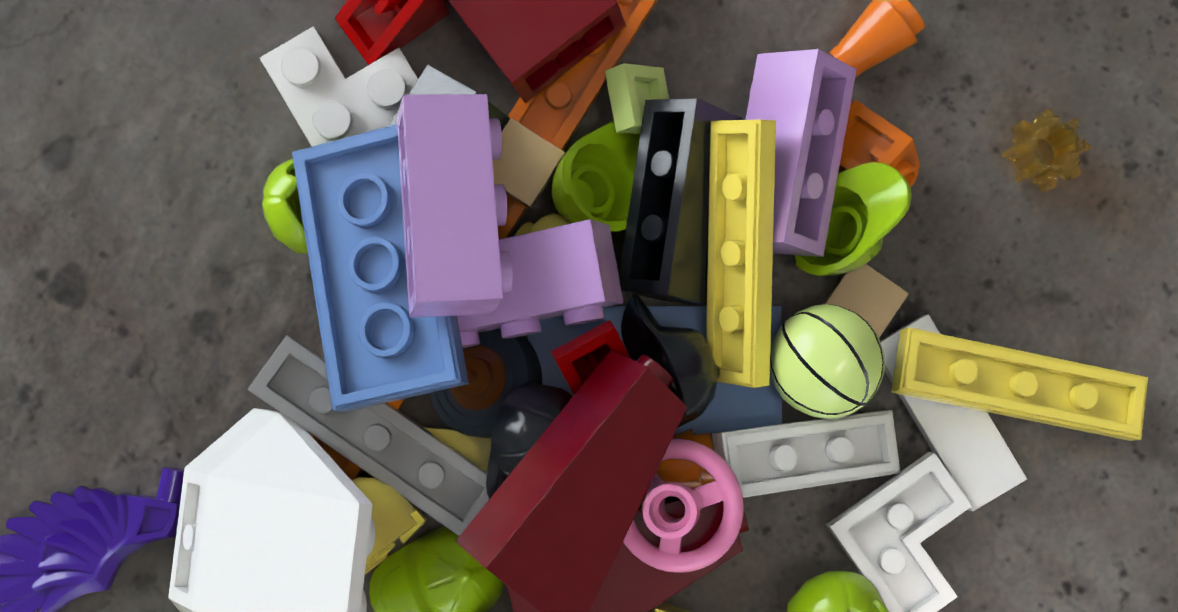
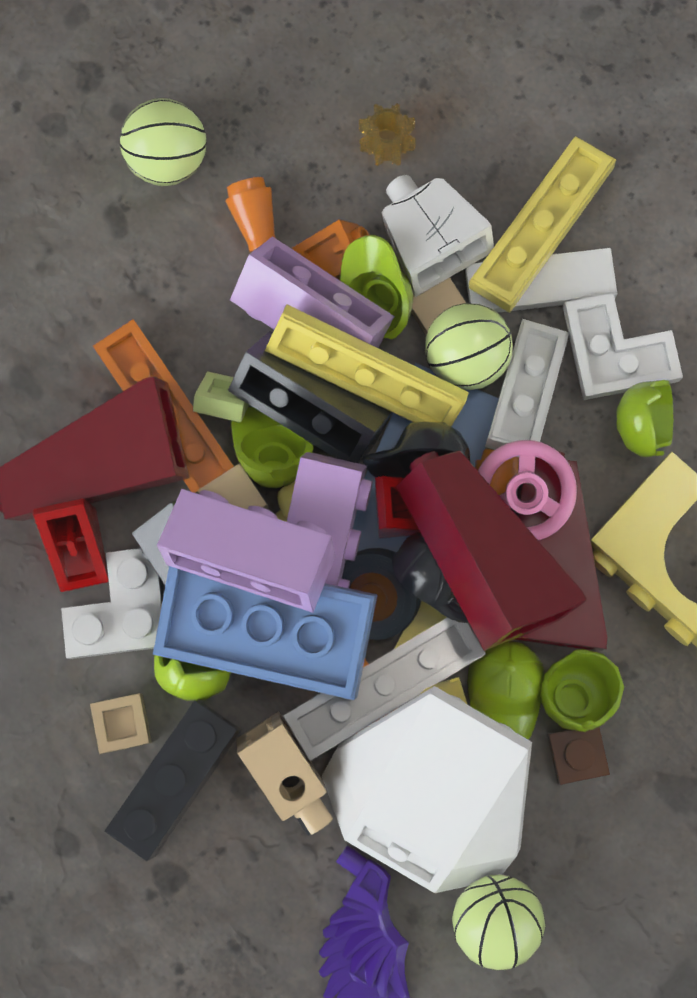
camera: 60 degrees left, 5 degrees down
(169, 241) = (173, 780): none -> black brick
(214, 154) = (120, 723): none -> tan tile
(225, 360) = (274, 755): none -> tan torso
(950, 258) = (433, 231): none -> white torso

